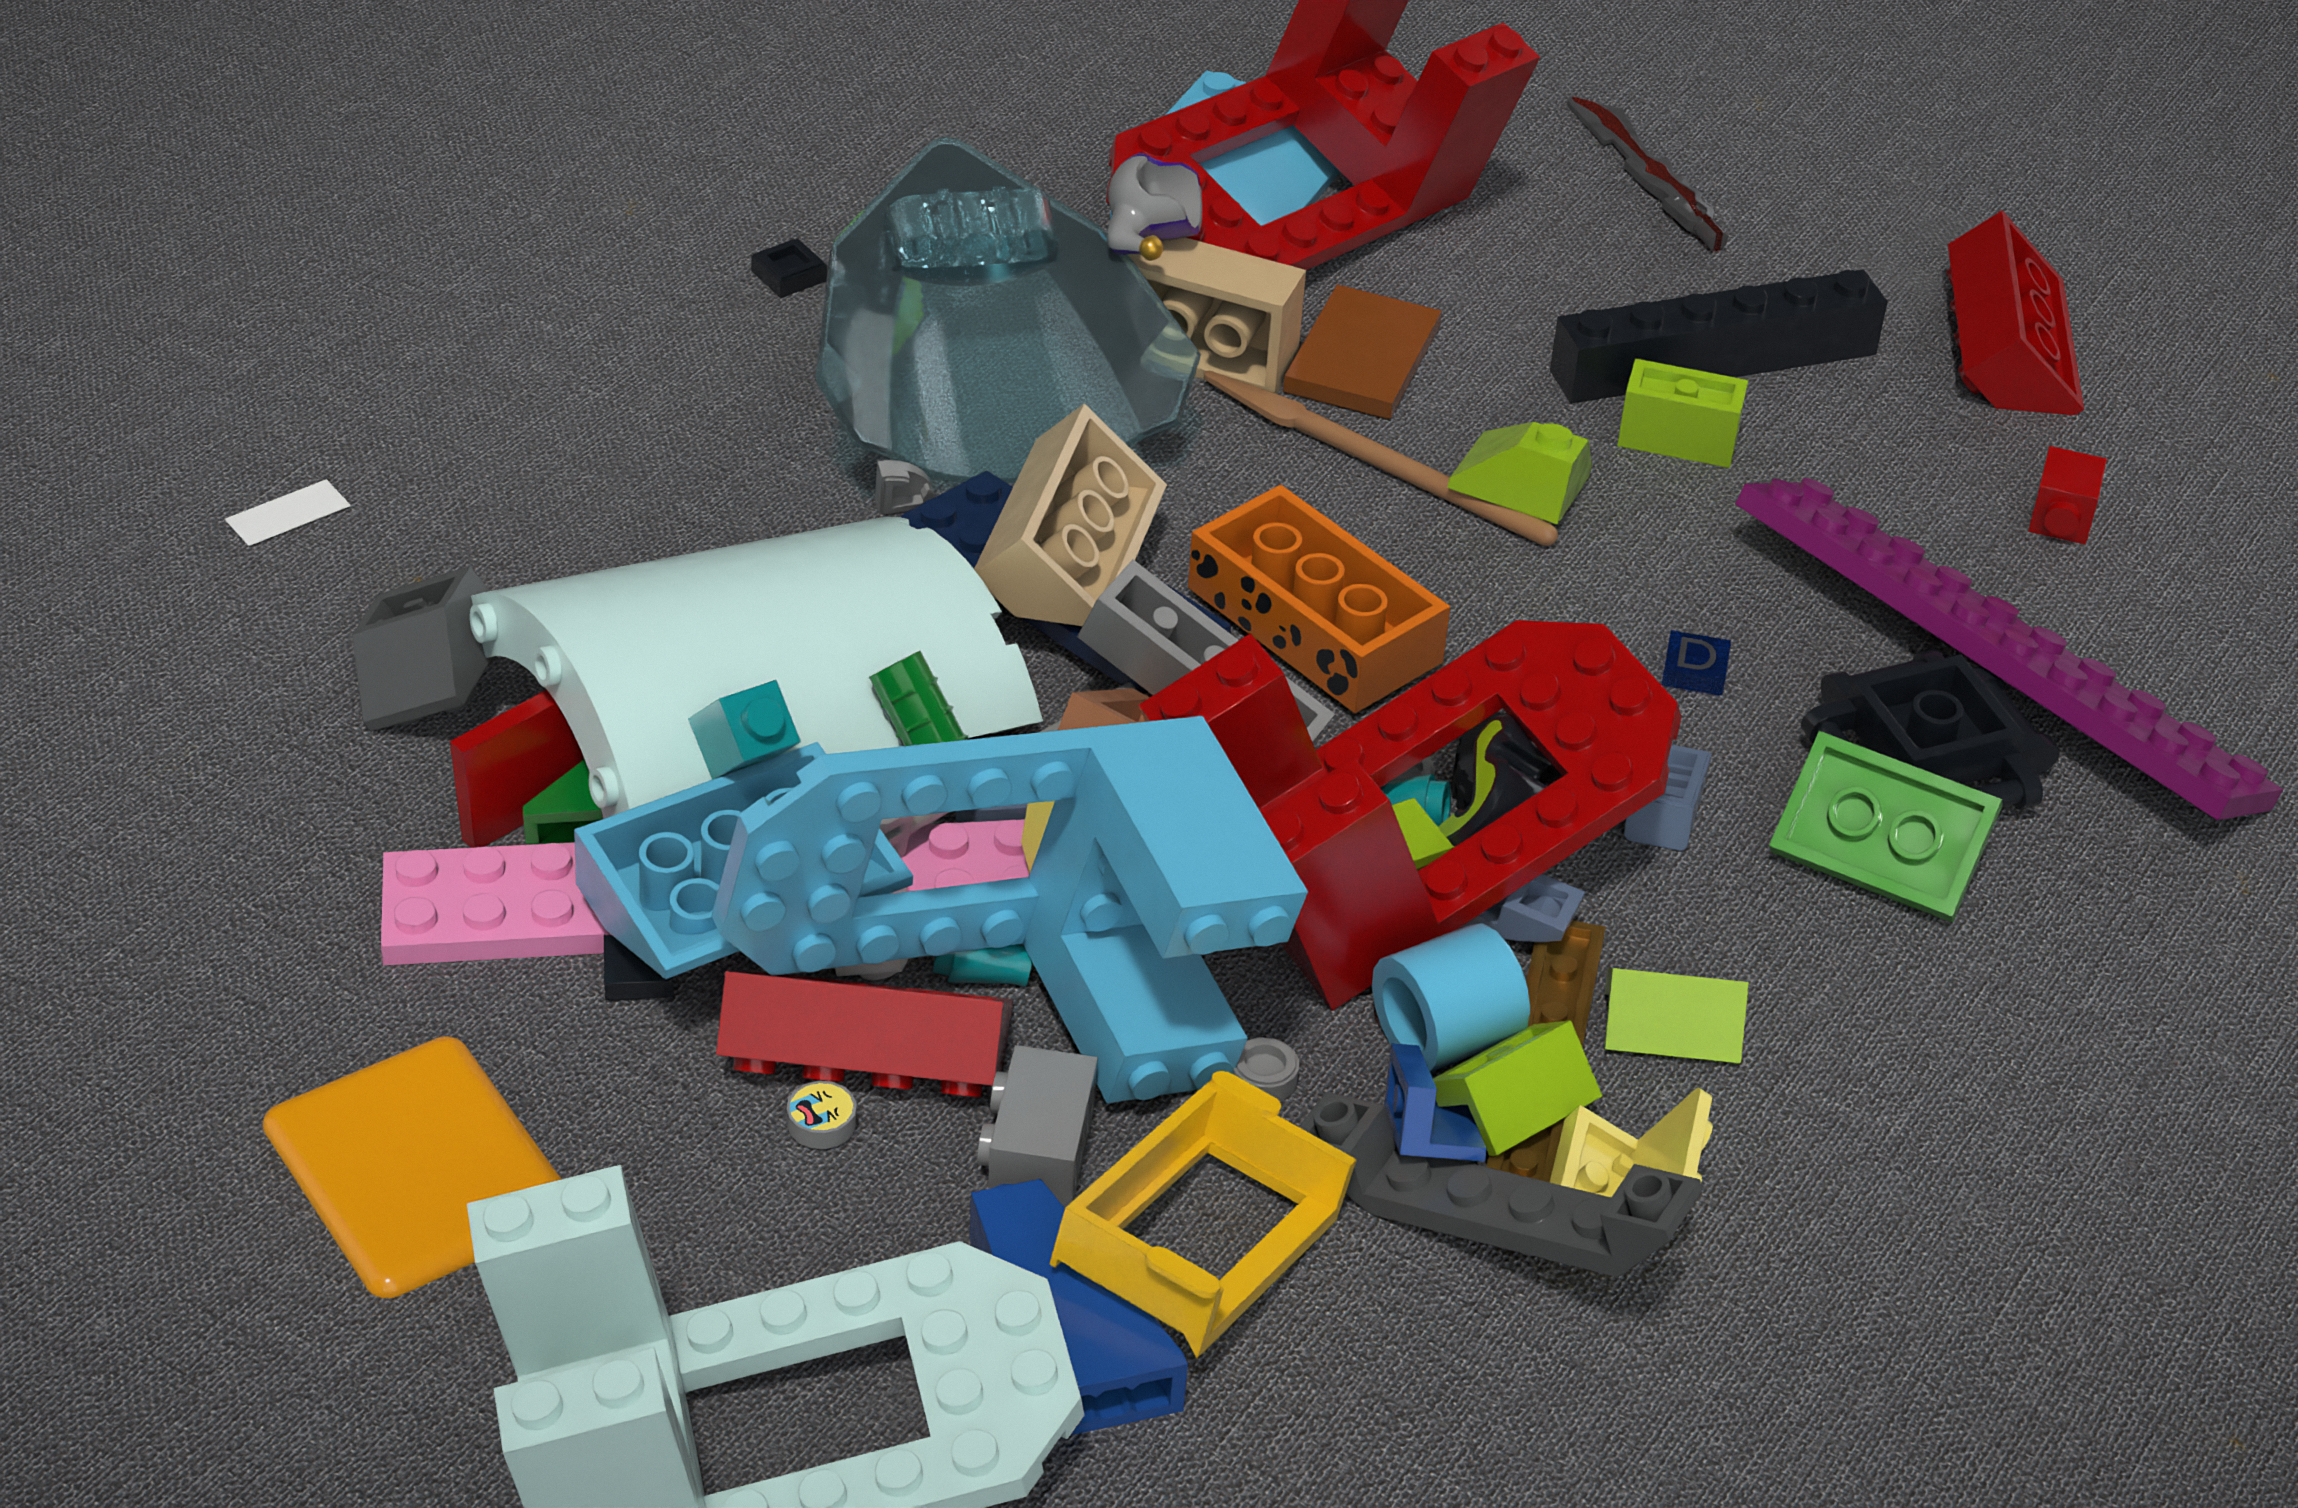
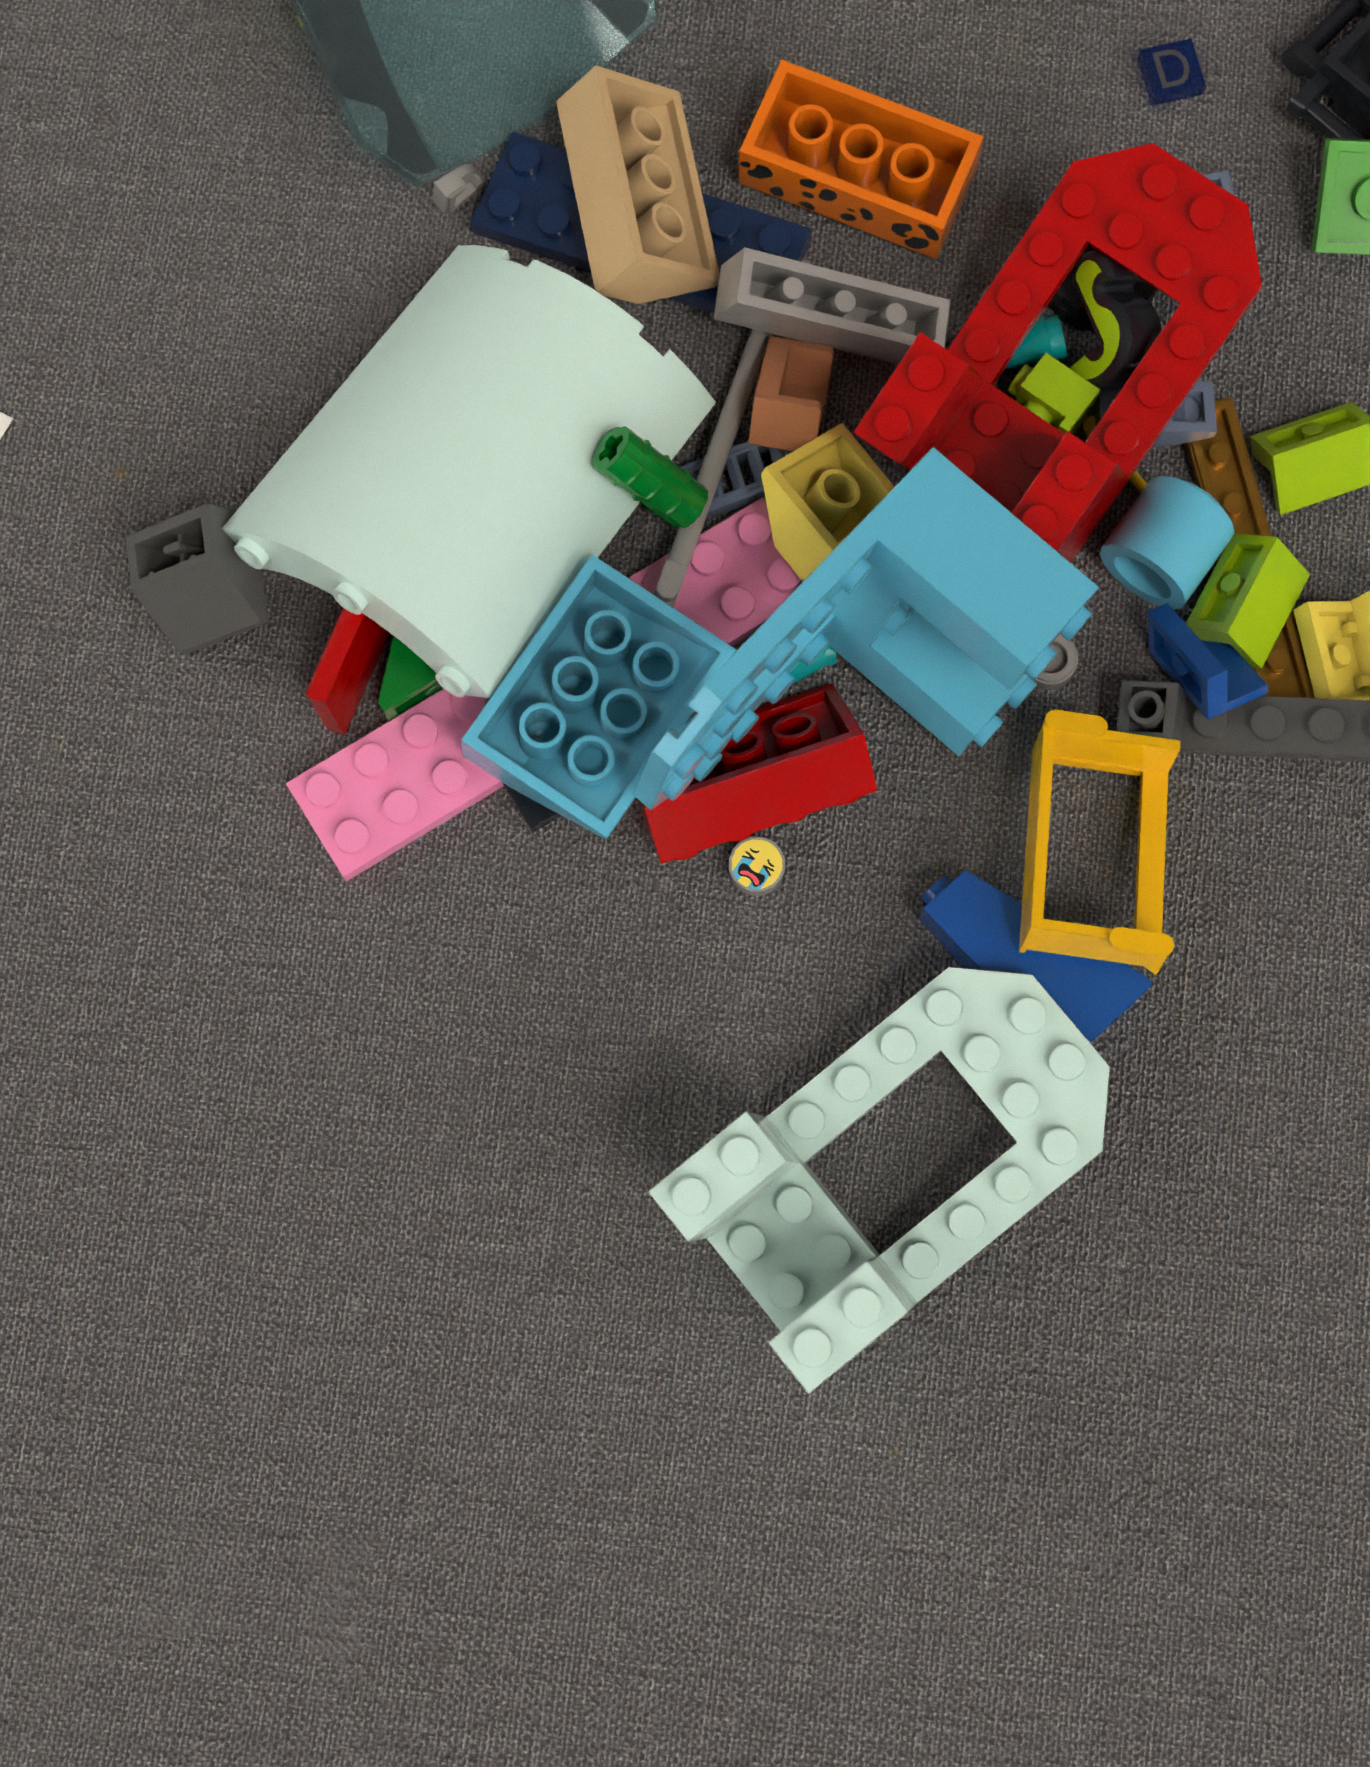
camera: 20 degrees left, 35 degrees up
(401, 1155) = (489, 1053): light orange piece -> none
(744, 729) = (543, 586): teal brick -> none
(1041, 1120) = (925, 804): light grey brick -> none

